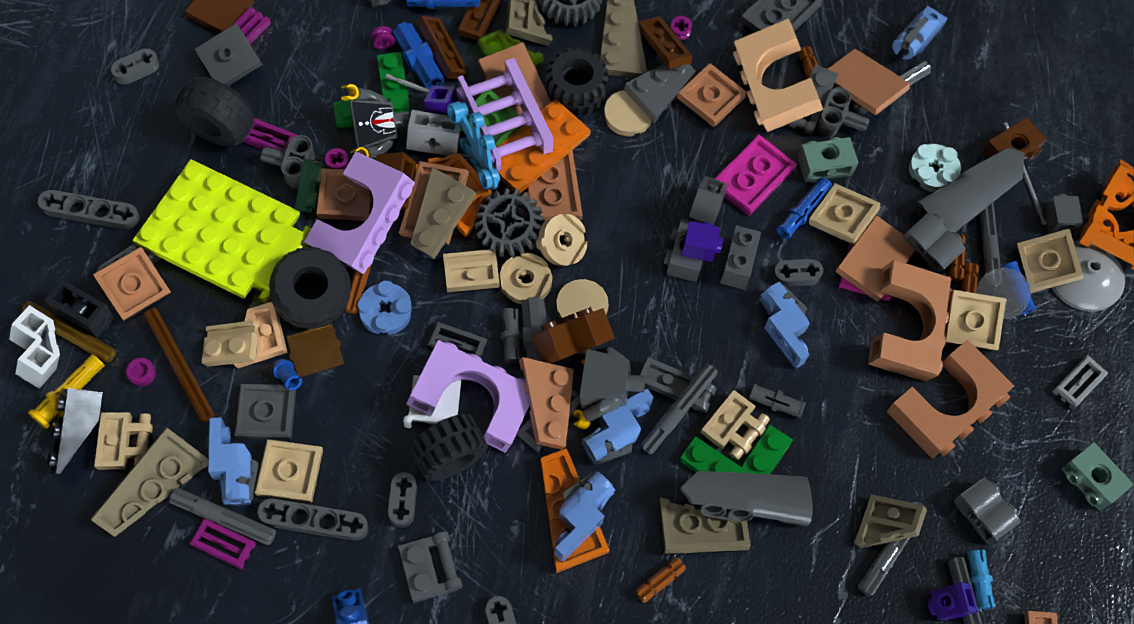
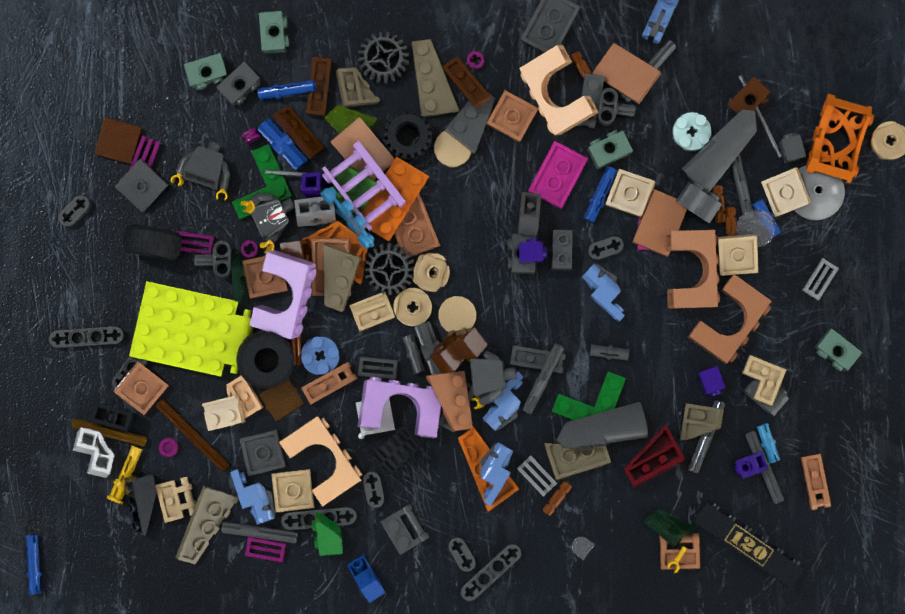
camera: 10 degrees left, 20 degrees up
(285, 371) = (266, 421): blue pin -> none
(312, 54) = (205, 168): none -> dark grey torso
(317, 542) = (328, 536): none -> green slope
(367, 467) = (317, 433): none -> light nougat arch
(385, 344) = (328, 383): none -> nougat plate
(627, 519) = (548, 487): none -> light grey tile
(728, 420) = (578, 376): tan plate -> none
(814, 557) = (656, 458): none -> dark red wedge
(913, 471) = (711, 381): none -> dark purple brick
(999, 479) = (769, 377): none -> tan plate

